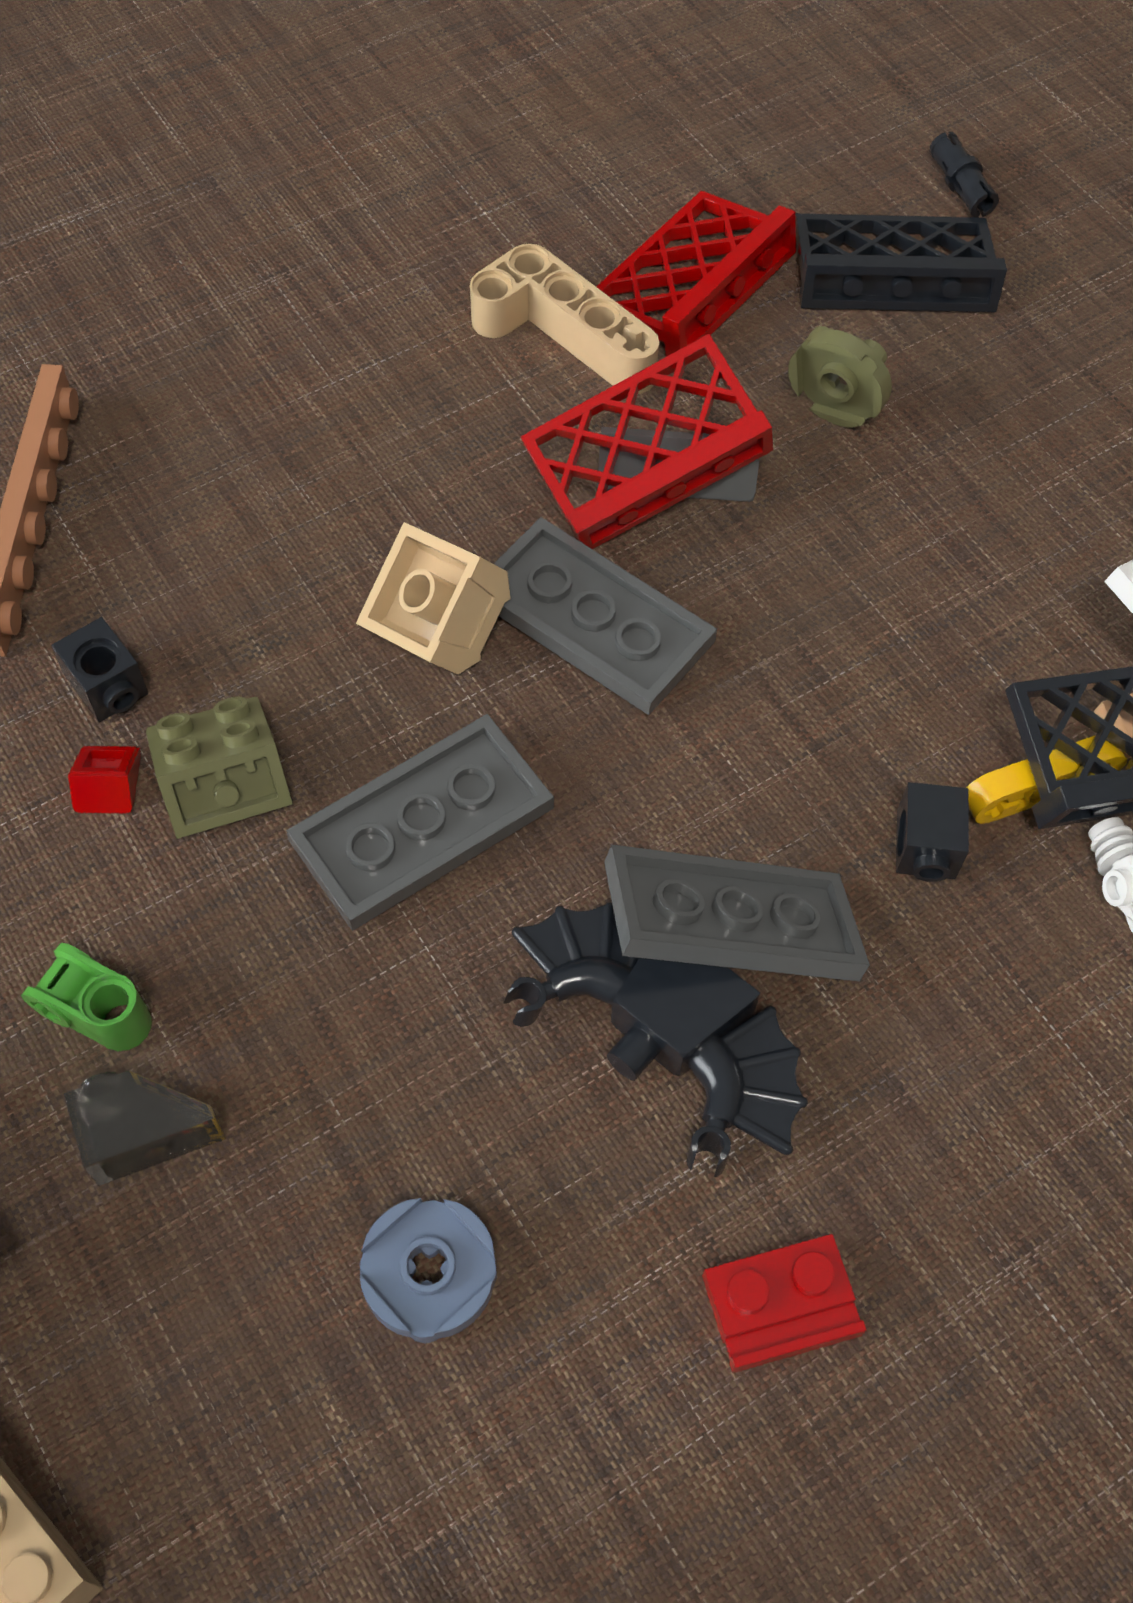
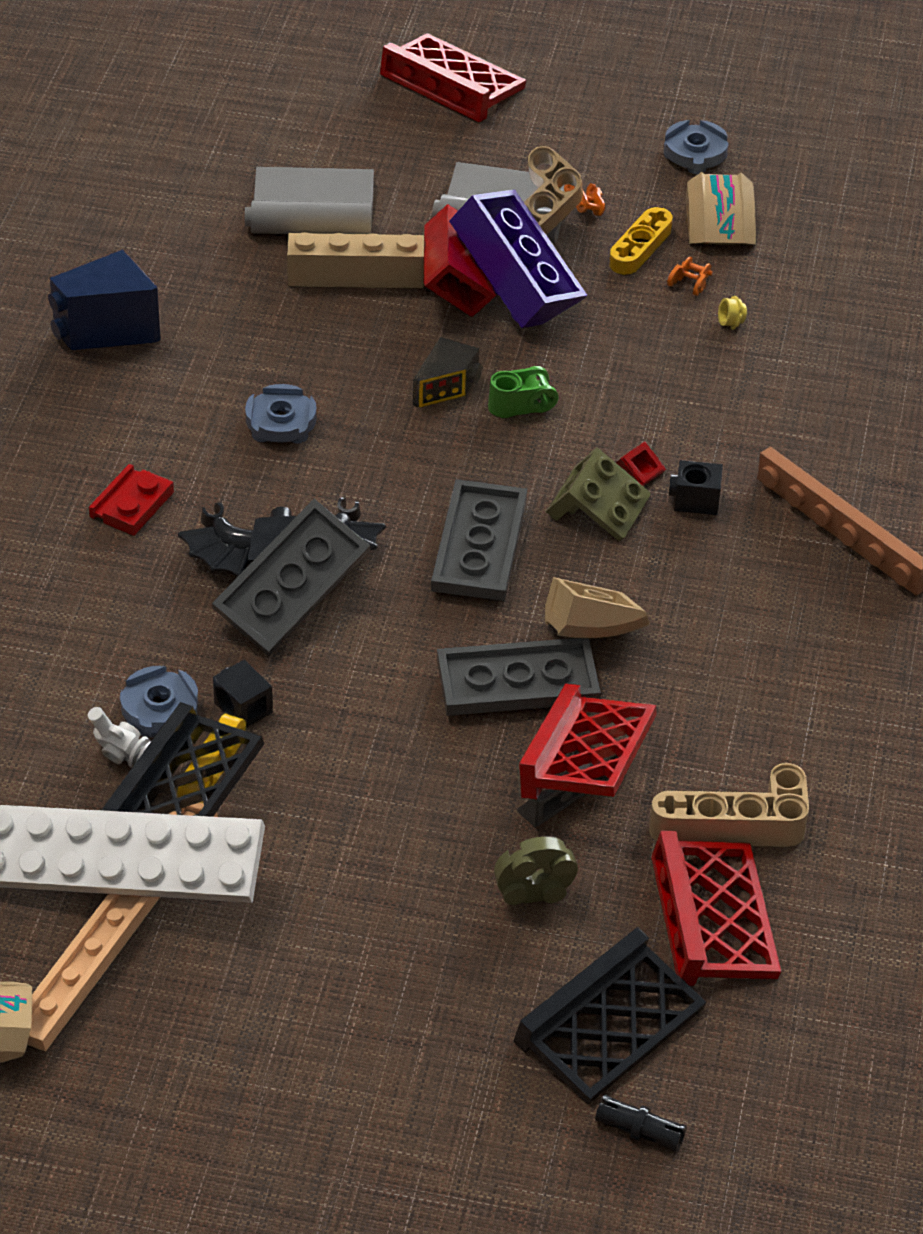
camera: 135 degrees right, 15 degrees down
(1025, 945) = (150, 682): none -> sand blue plate

